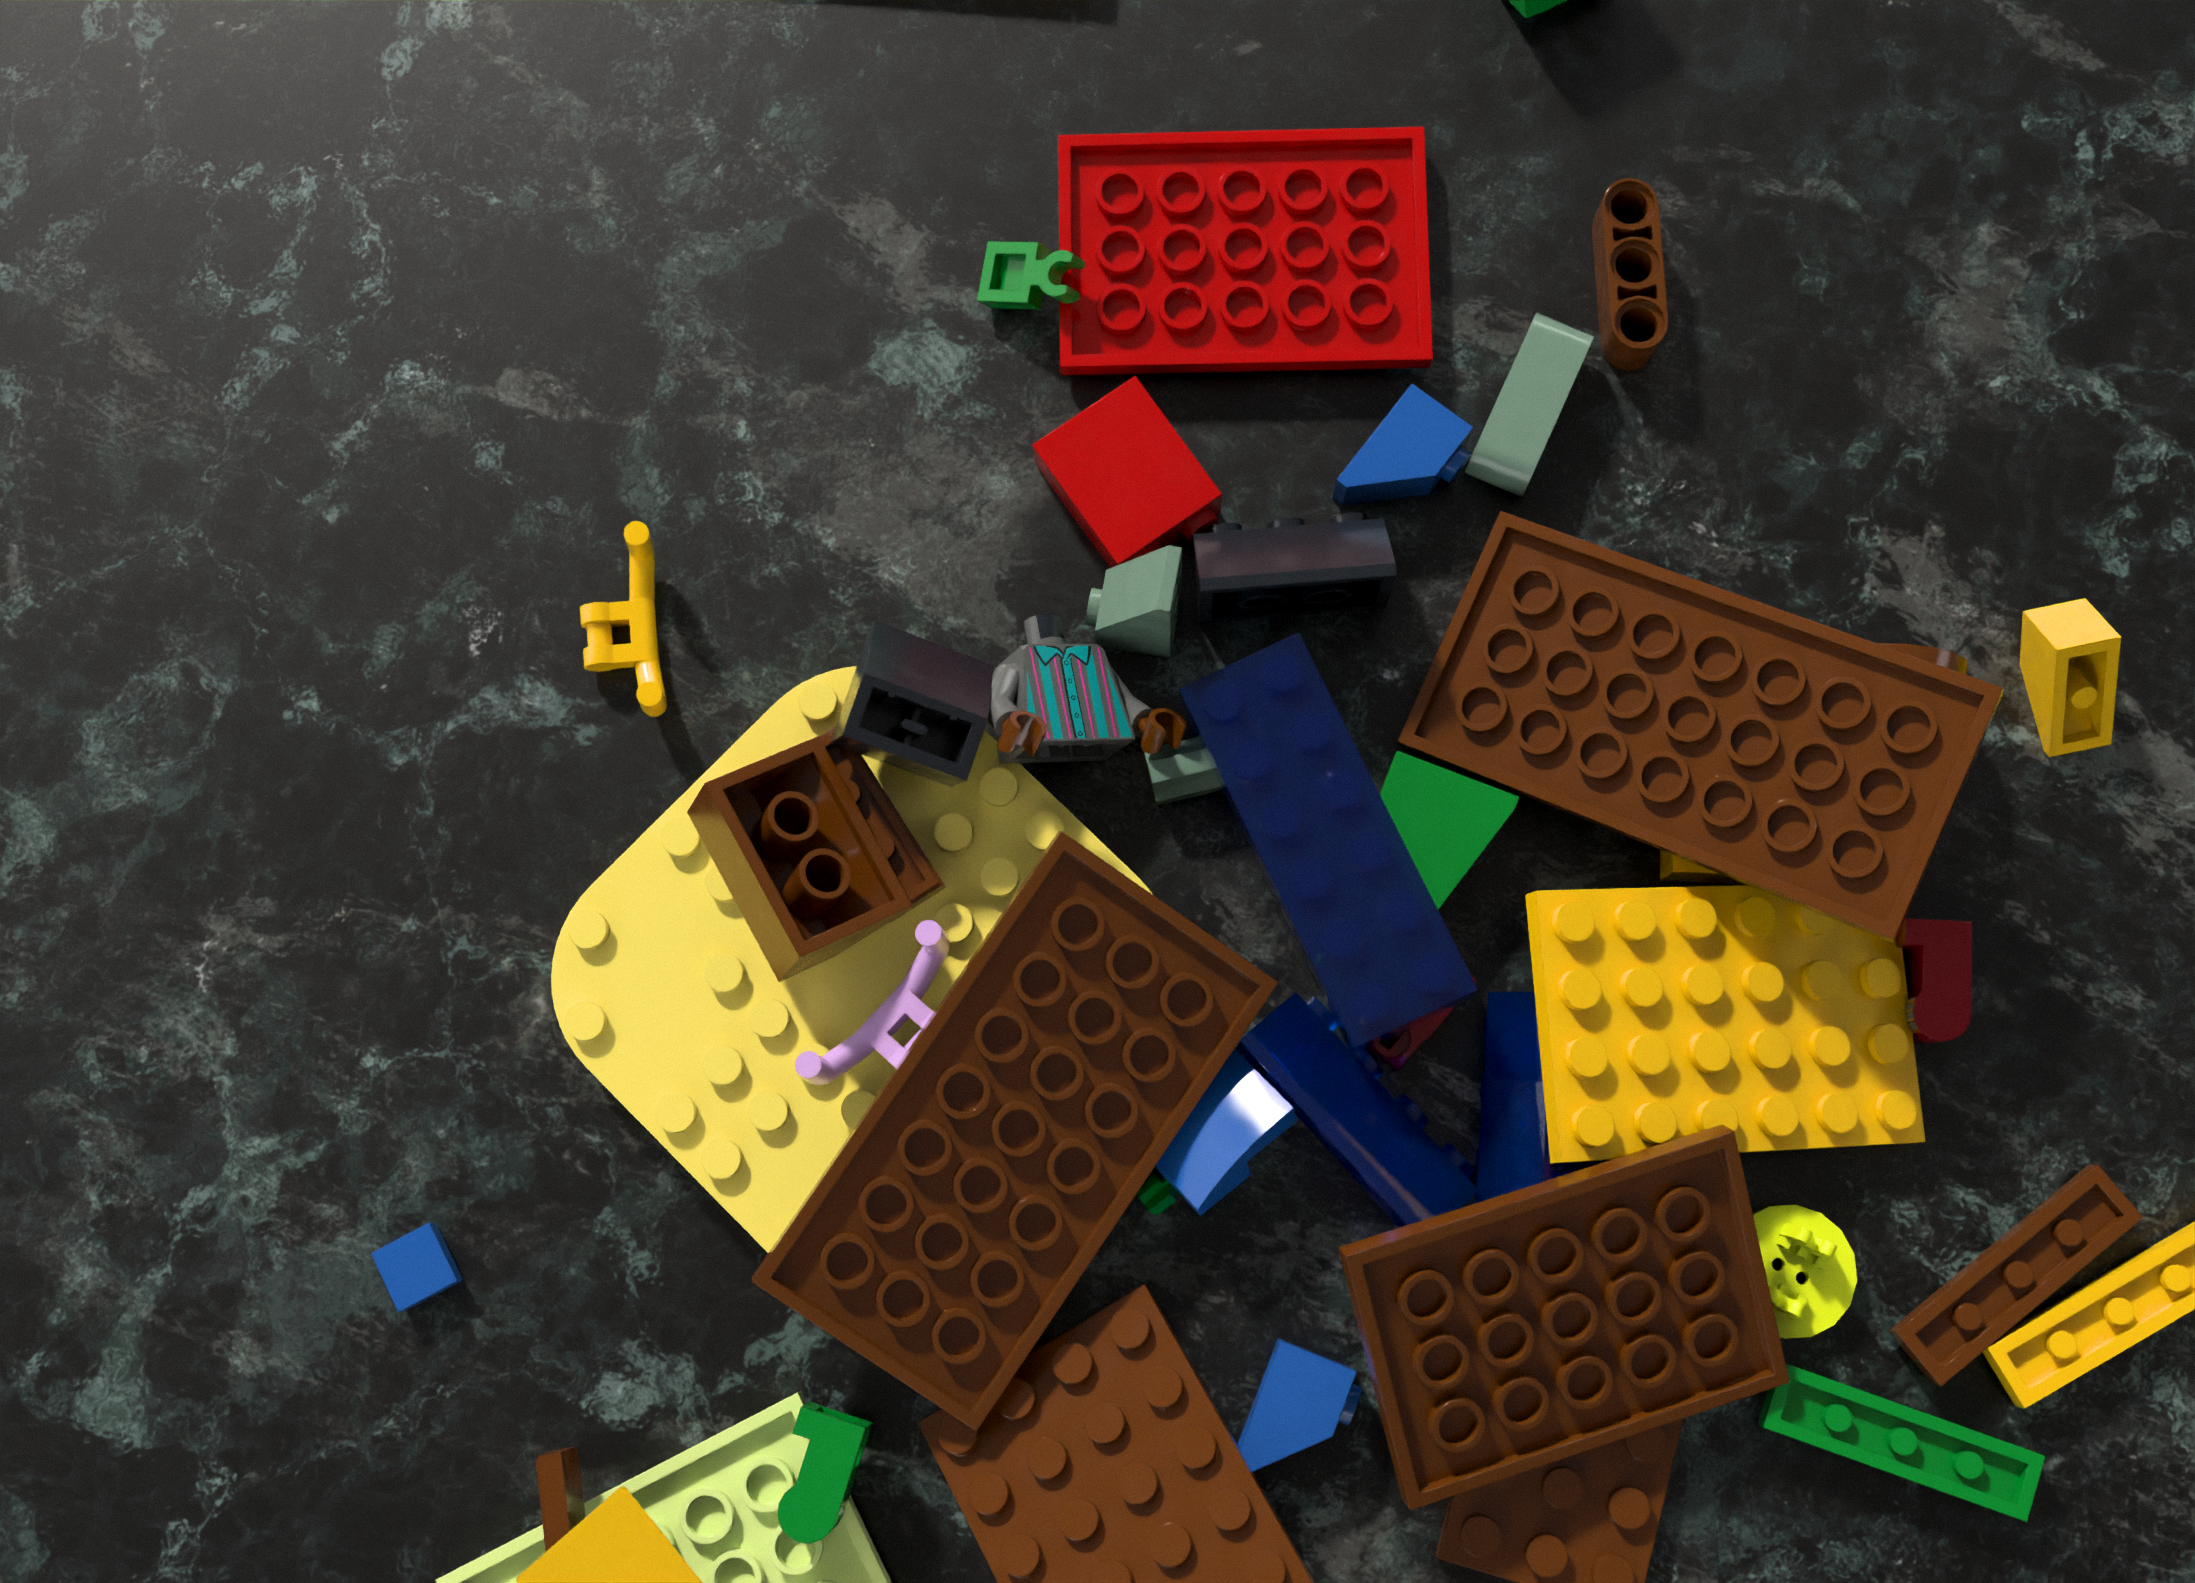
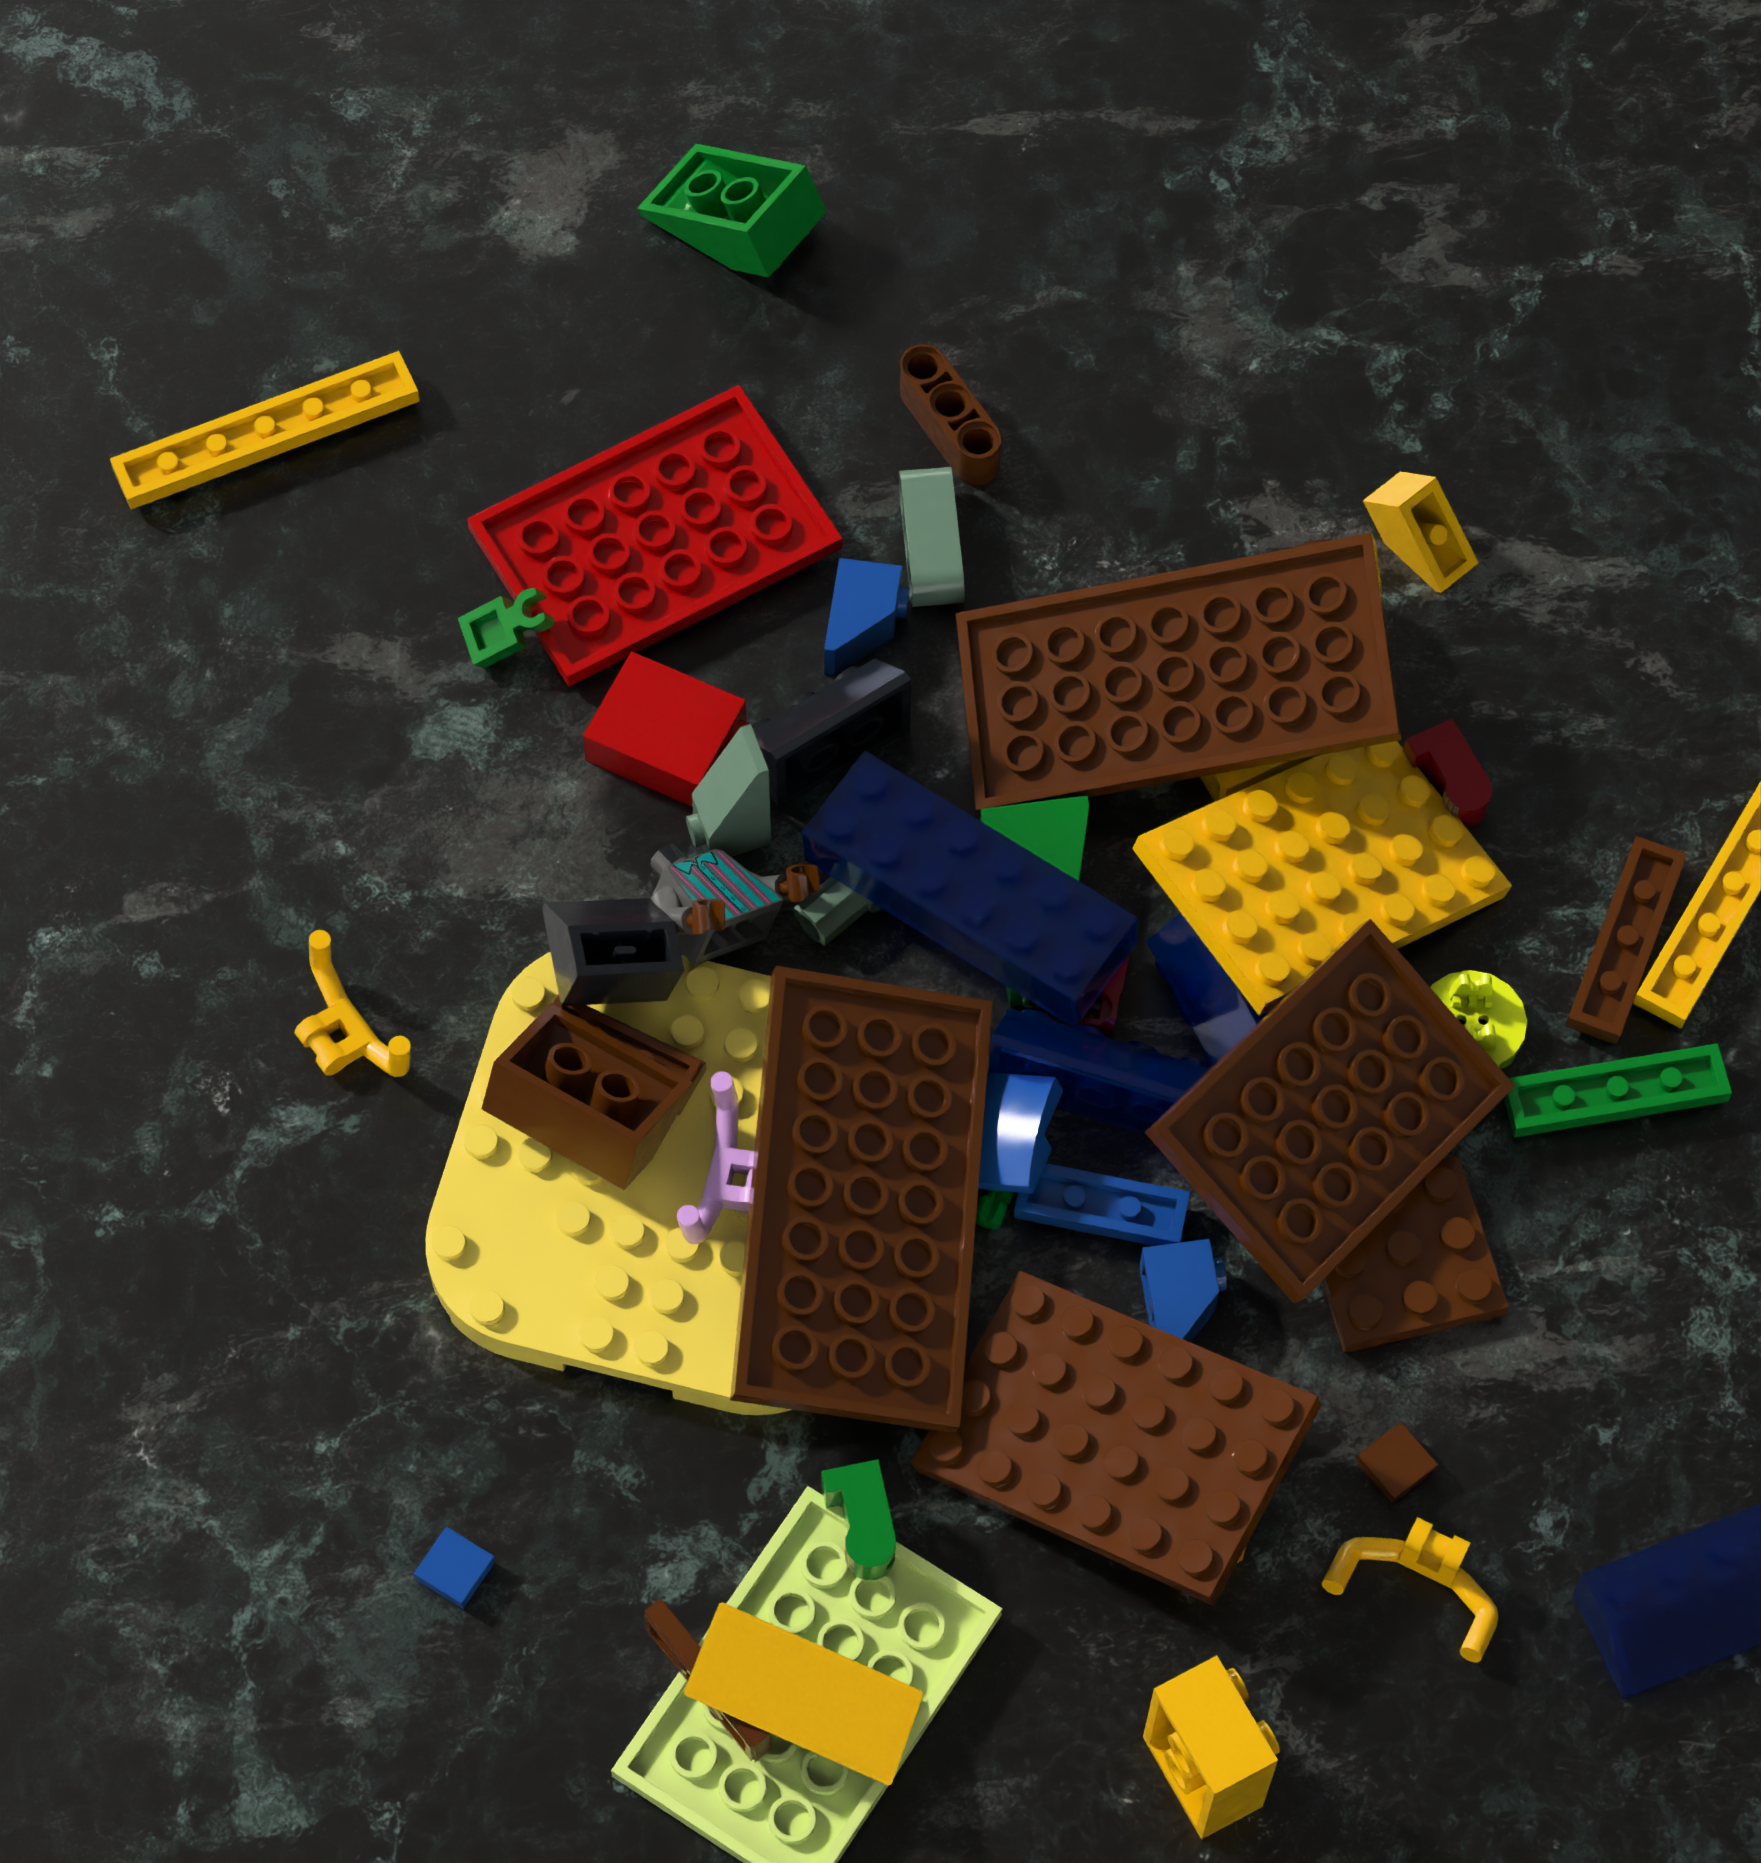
camera: 40 degrees left, 15 degrees down
(1278, 1261) = (1105, 1206): none -> blue plate

